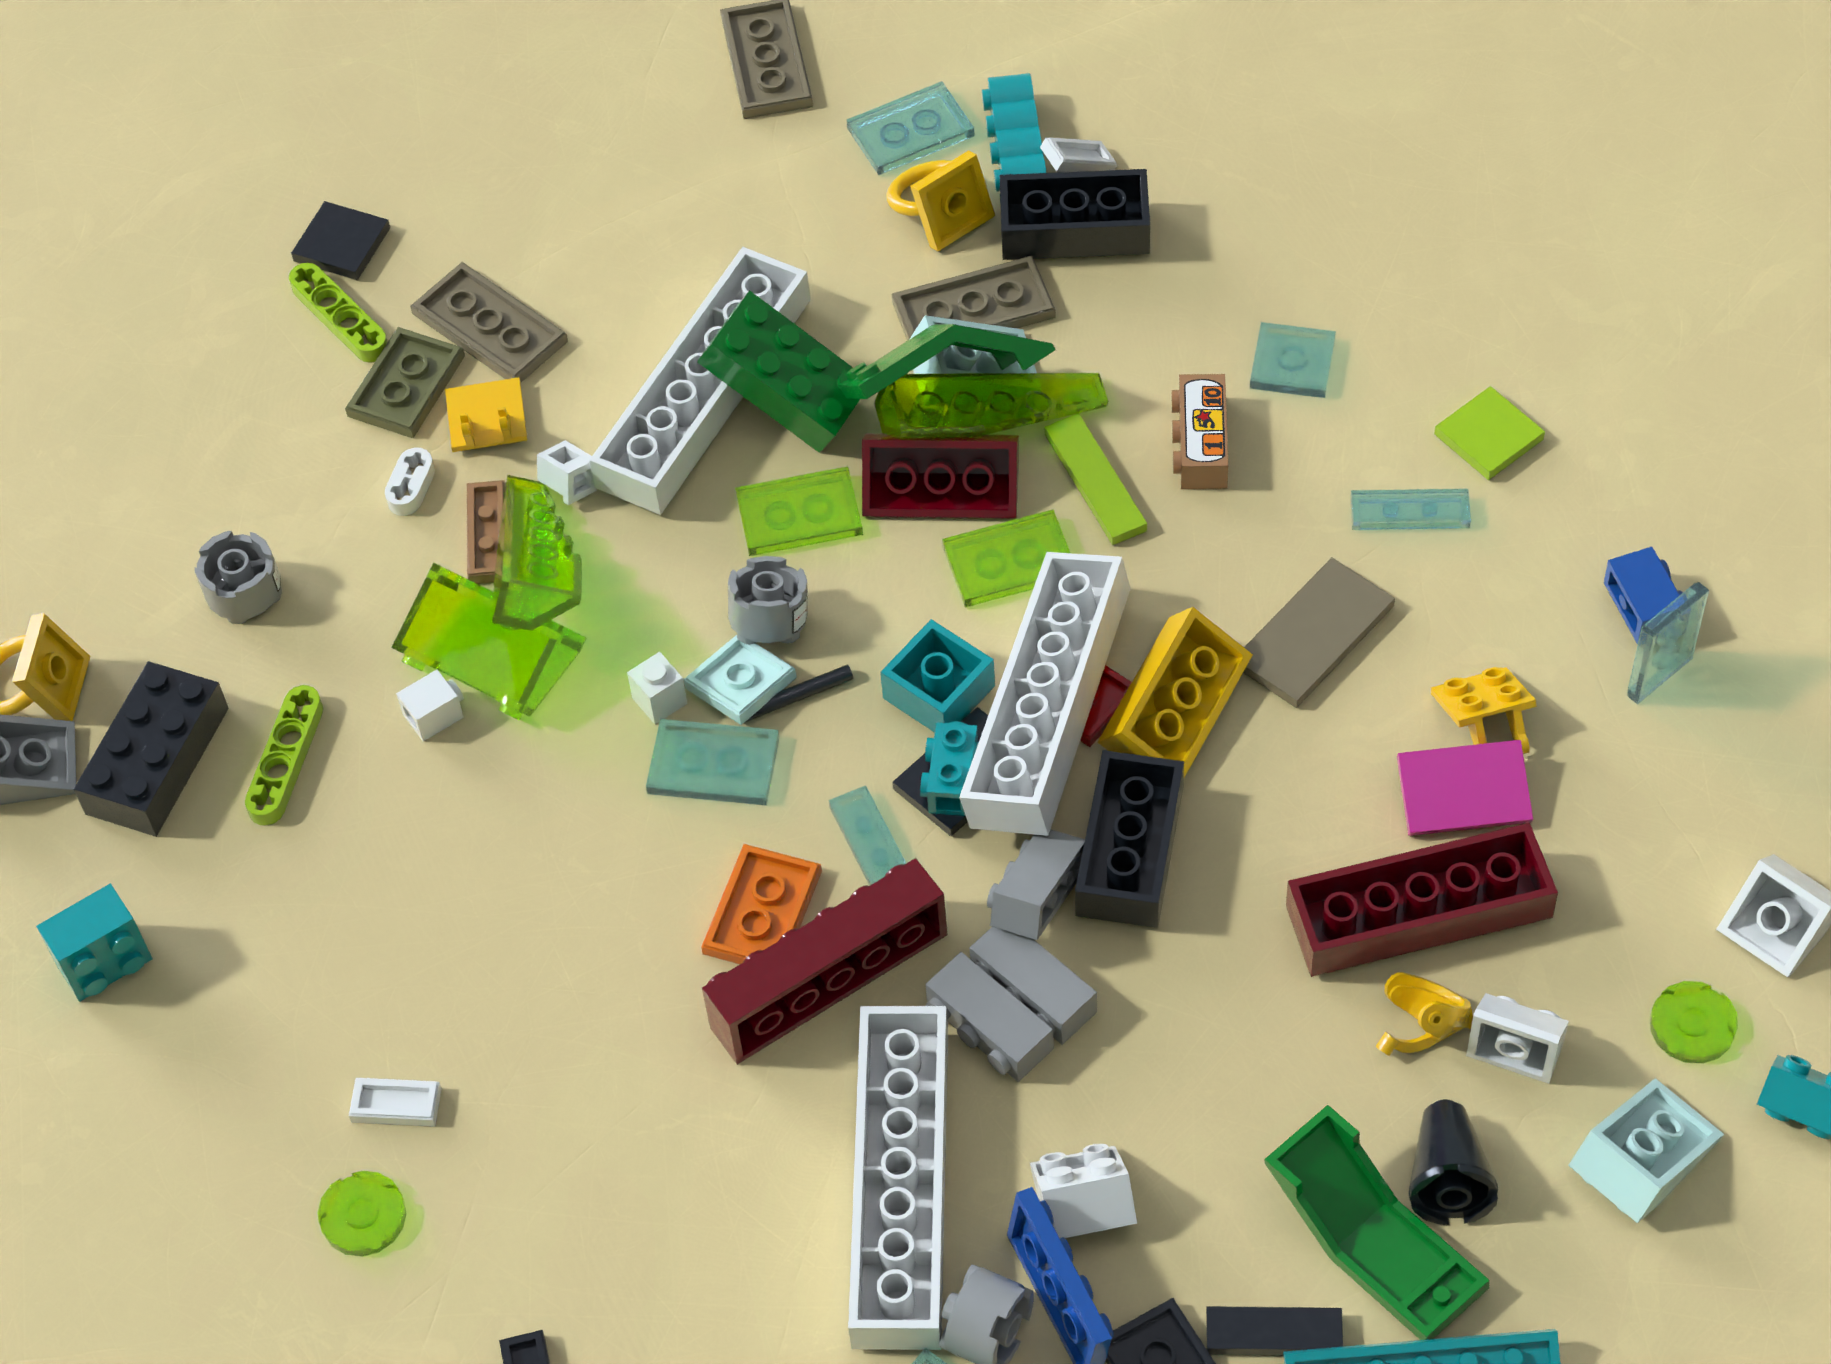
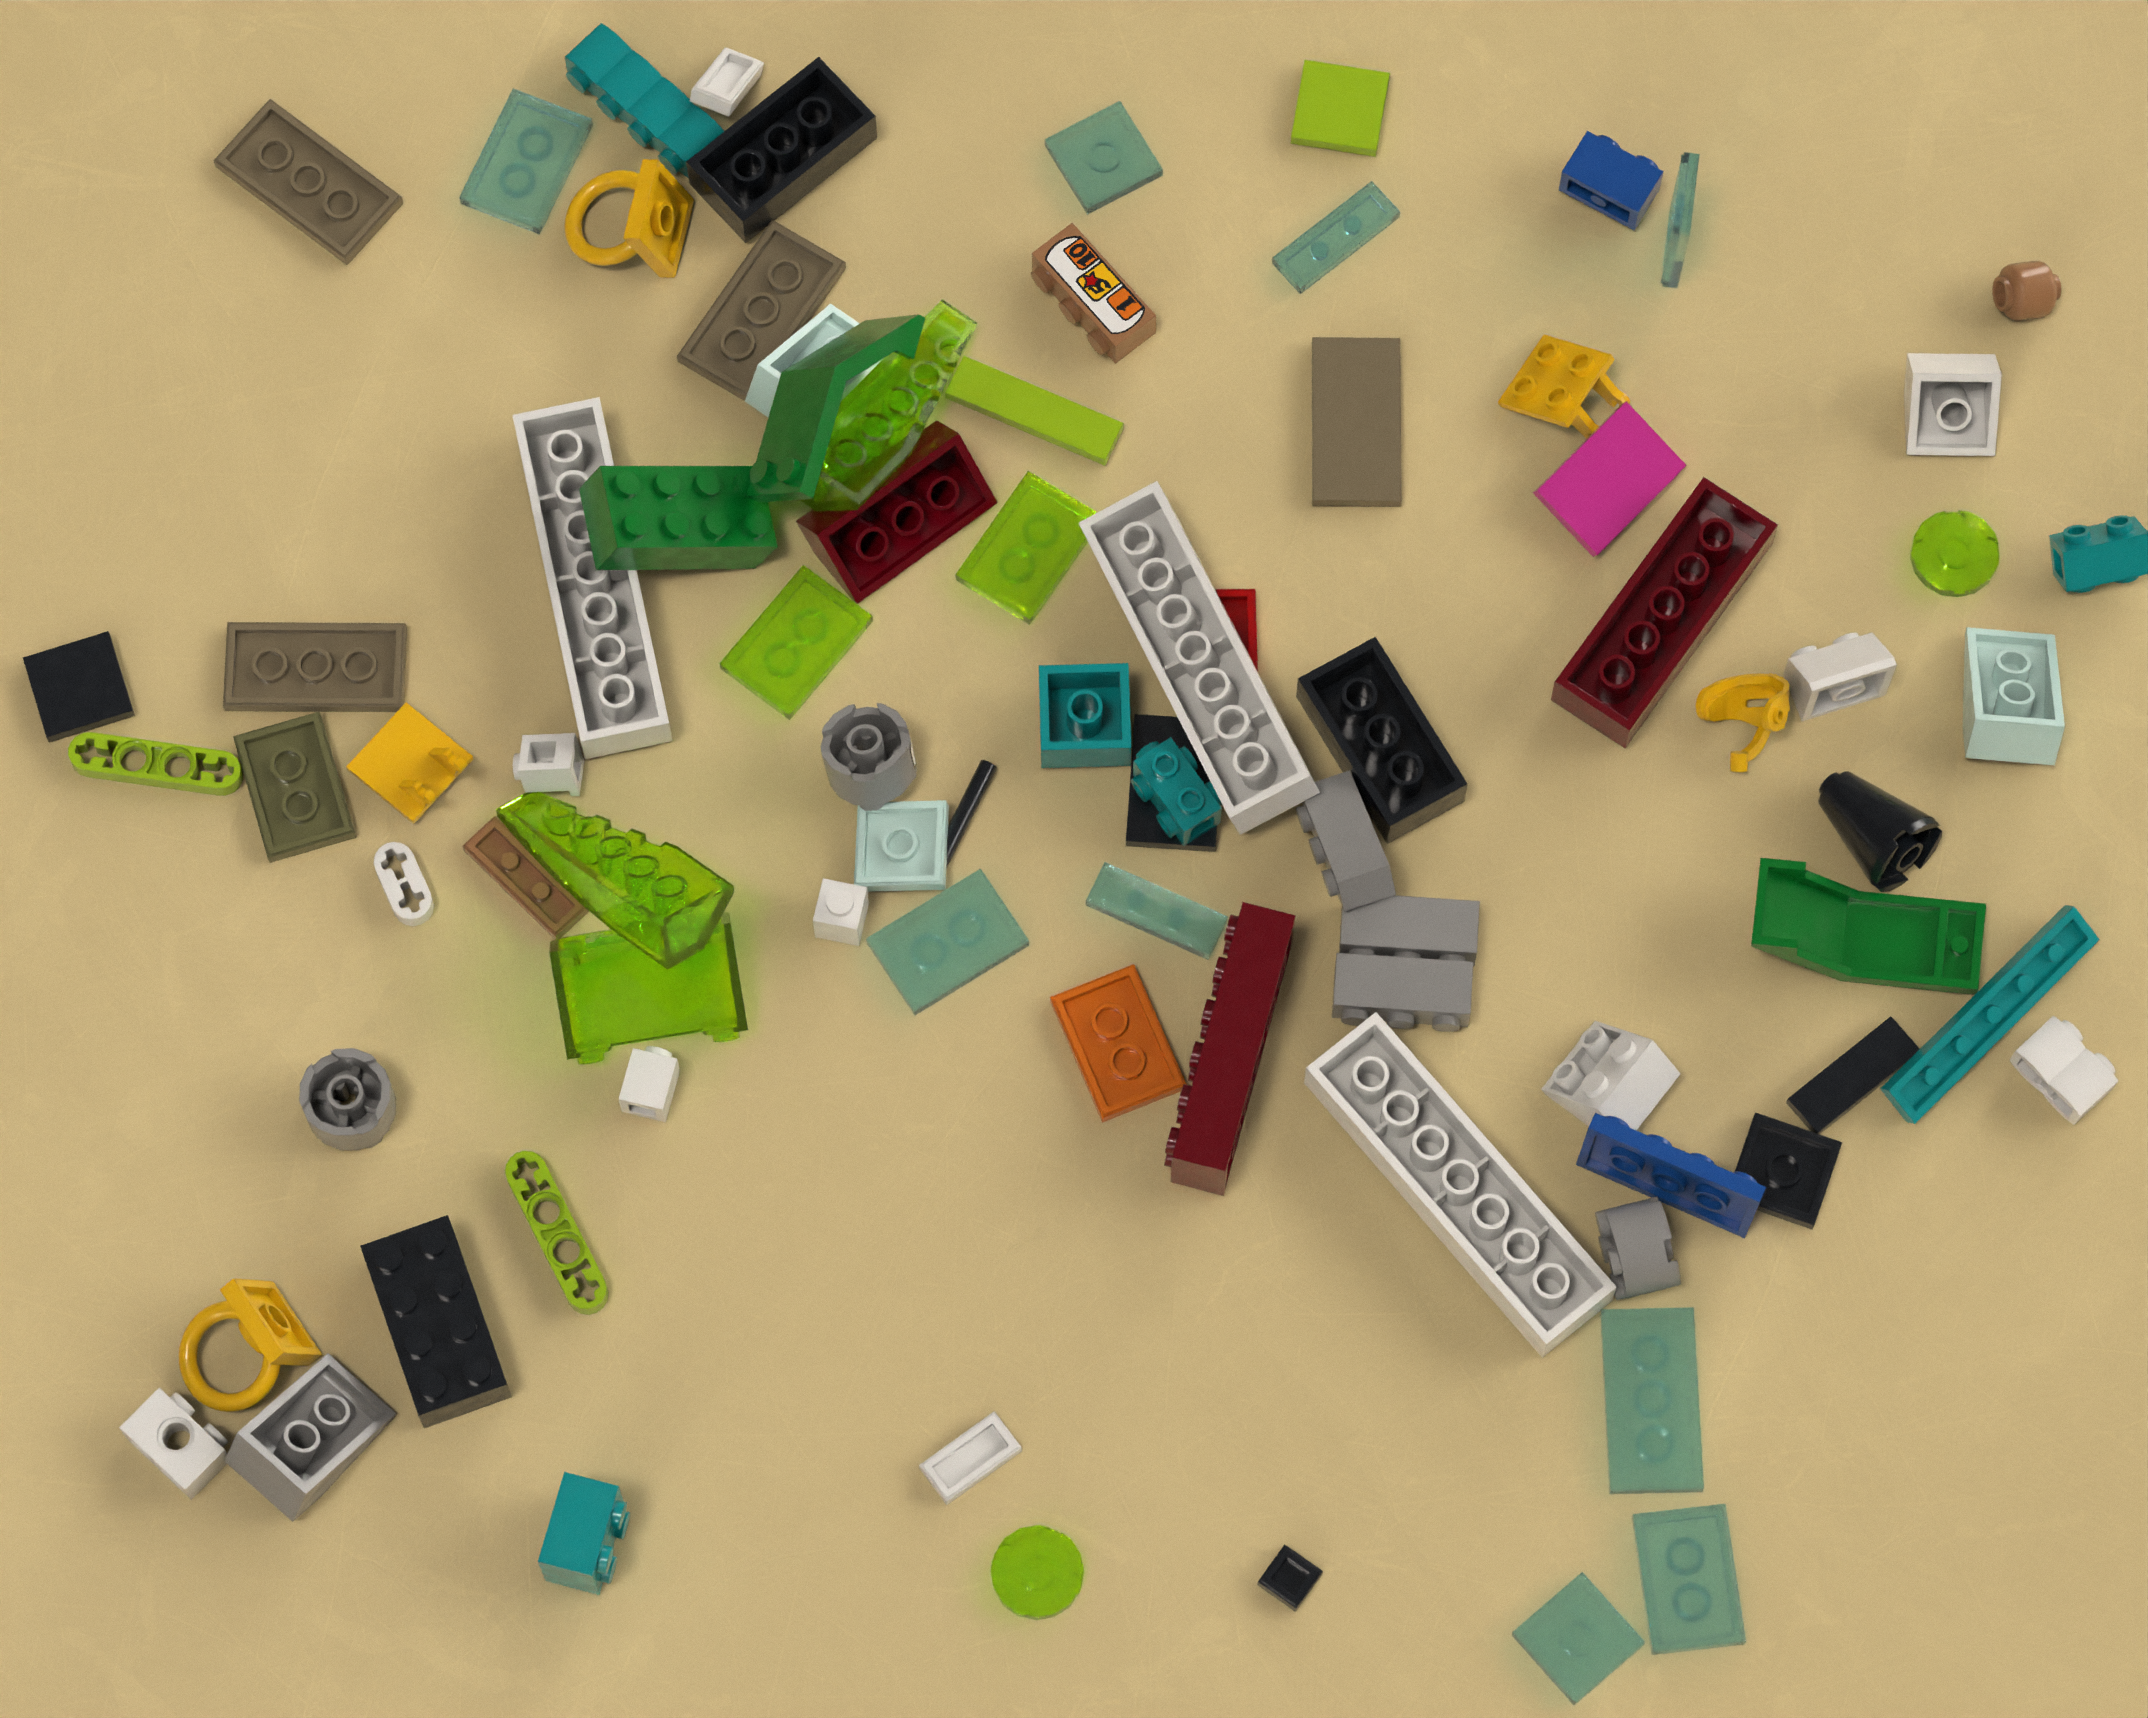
camera: 45 degrees left, 15 degrees up
(1177, 691) = (1299, 574): yellow slope -> none

